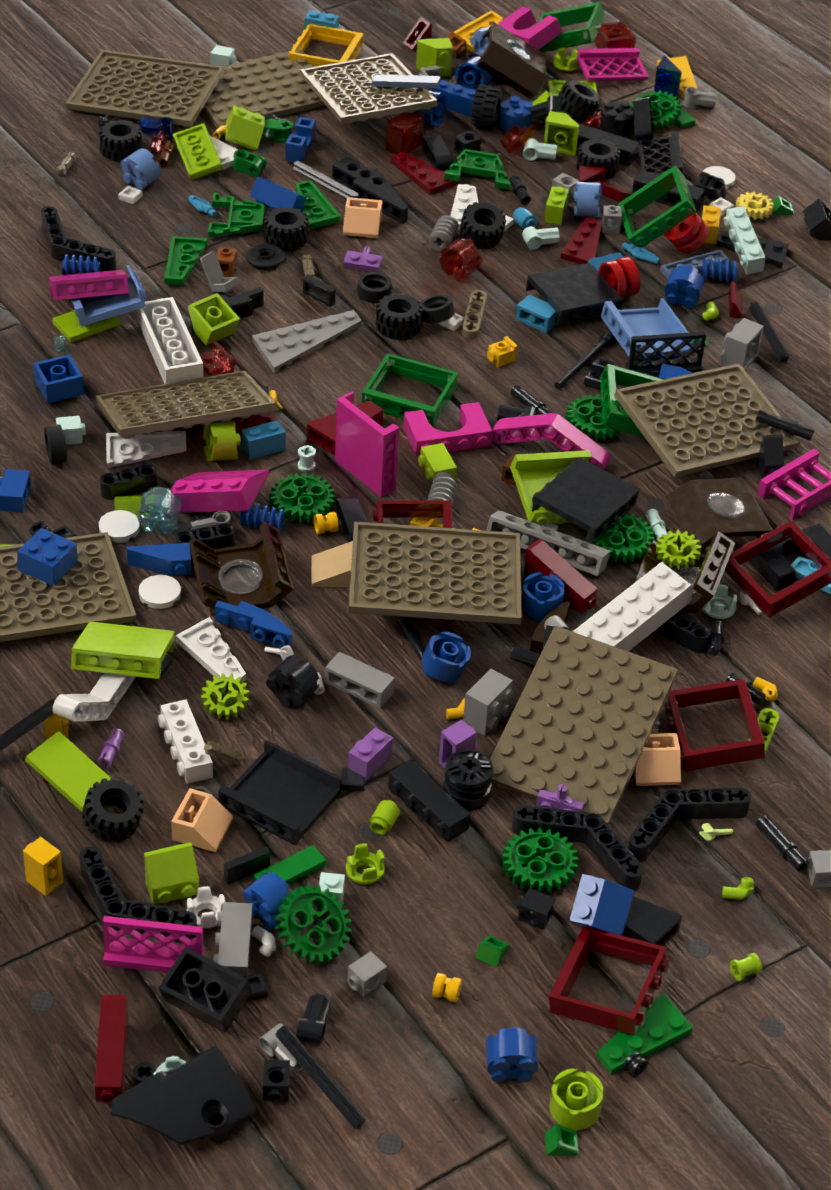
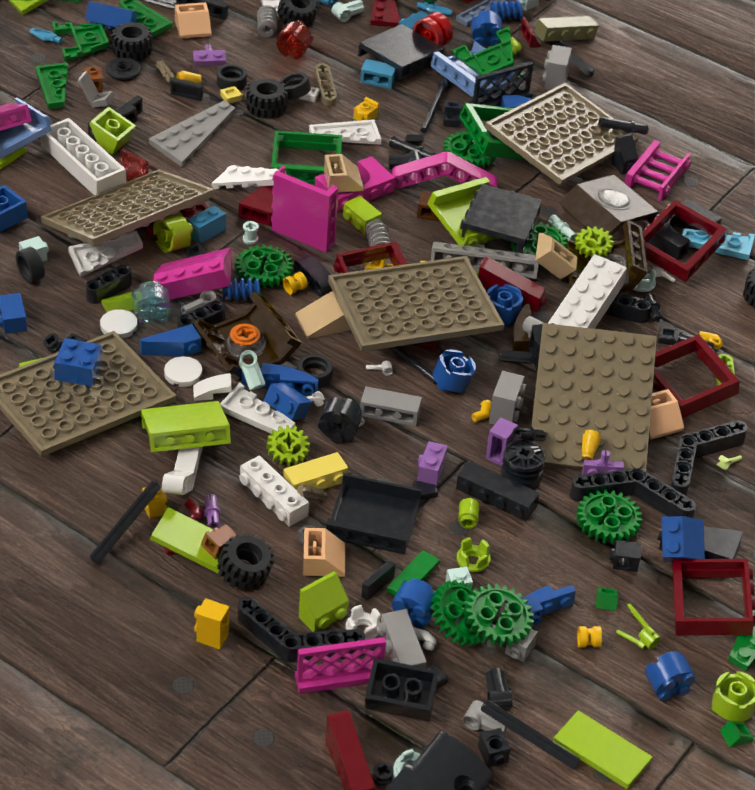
camera: 20 degrees left, 0 degrees up
(93, 774) = (215, 540): none -> brick
(94, 743) = (195, 509): none -> dark red arm
(180, 613) = (217, 384): none -> white slope
(222, 607) = (251, 372): none -> light aqua piece
(240, 734) = (318, 473): none -> light yellow brick
(241, 464) = (195, 250): none -> black slope
(247, 563) = (249, 331): none -> orange gear
(249, 648) = (287, 401): none -> blue brick
(304, 612) = (320, 362): none -> black tyre
(328, 278) = (188, 76): none -> yellow cone
(328, 395) = (245, 176): none -> white wing
(333, 922) = (513, 622): none -> green gear
(364, 306) = (231, 94): none -> light yellow plate
(378, 636) = (386, 368): none -> white hand
(395, 939) = (547, 600): none -> blue slope
(398, 1117) = (603, 749): none -> lime tile
(430, 415) = (342, 173): none -> tan slope
(473, 371) = (352, 132): none -> white wing
(487, 746) = (529, 434): none -> black axle
(514, 1004) = (648, 636): none -> lime plant
(539, 392) = (414, 138): none -> black tile
(553, 773) = (590, 443): none -> yellow cone
(622, 556) = (555, 256): none -> tan slope
(669, 320) = (490, 59): none -> green wing
(717, 673) = (667, 336): none -> black tile
(777, 303) = (566, 28): none -> olive brick

